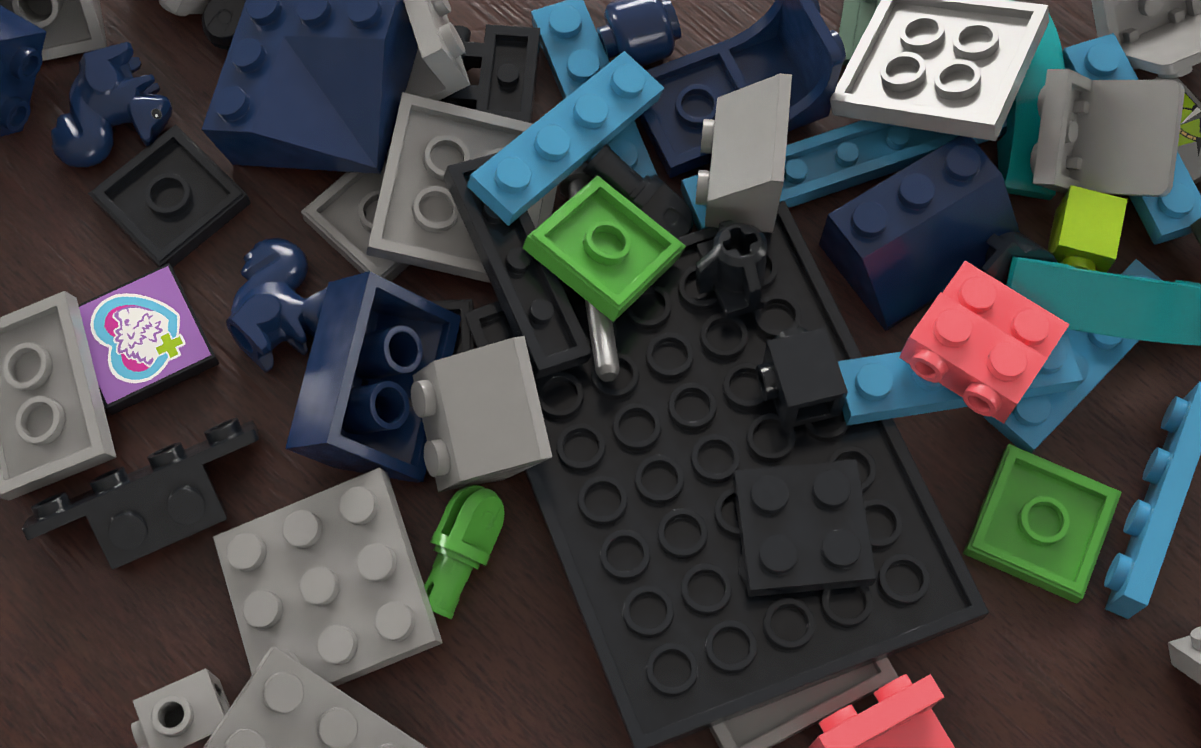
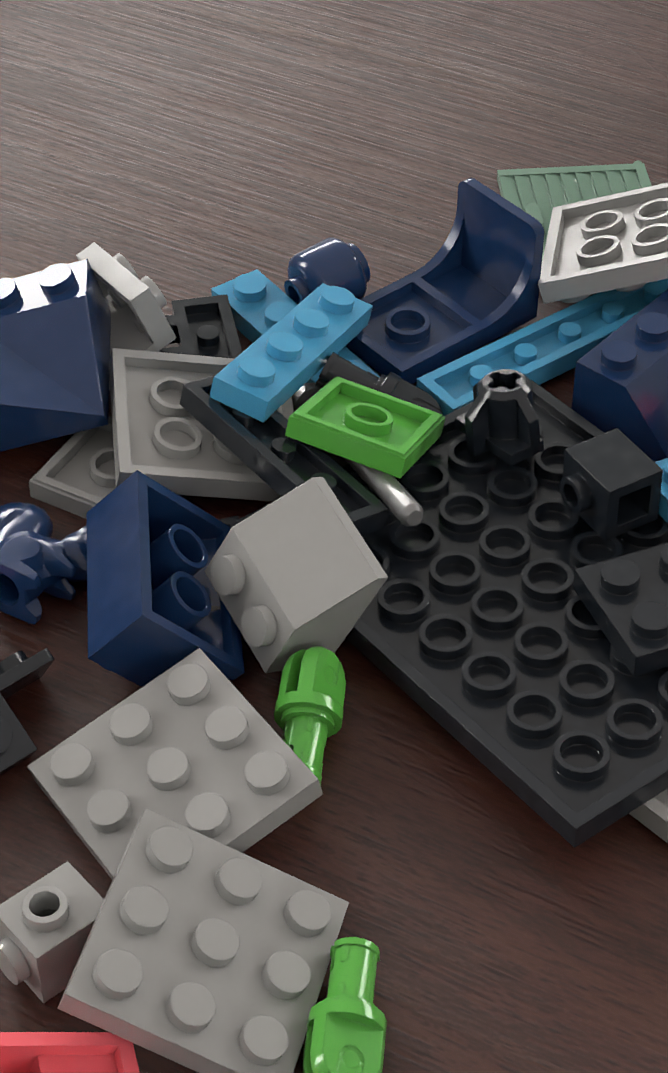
camera: 15 degrees left, 25 degrees down
(746, 154) = (479, 319): light grey slope -> none

